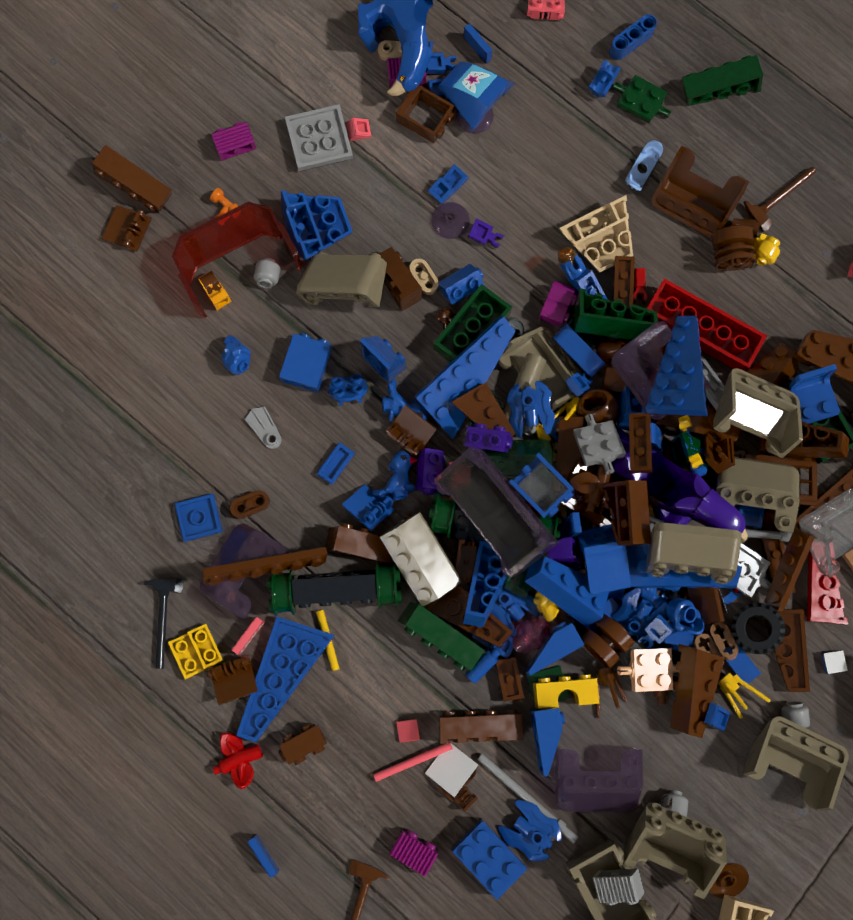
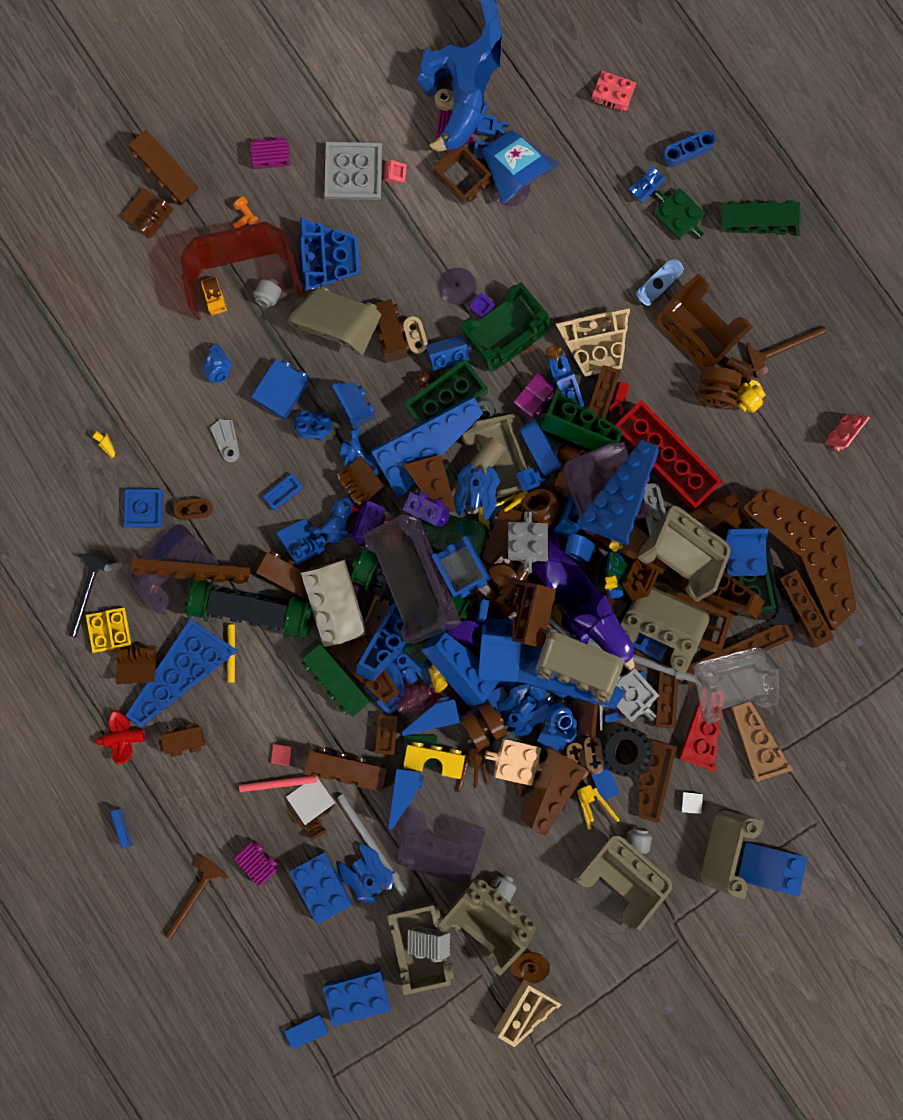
camera: 20 degrees right, 5 degrees up
(142, 463) = (105, 443): none -> yellow bar
(248, 635) = (159, 629): coral tile -> none
(448, 184) = (465, 250): blue slope -> none
(477, 43) = (534, 115): blue tile -> none
(483, 665) = (365, 715): blue cylinder -> none
(513, 244) = (507, 328): none -> dark green windscreen
(640, 443) = (563, 552): reddish brown plate -> none
(657, 631) = (532, 728): blue plate -> none
(717, 716) = (564, 821): blue tile -> none
(789, 569) = (672, 706): reddish brown plate -> none

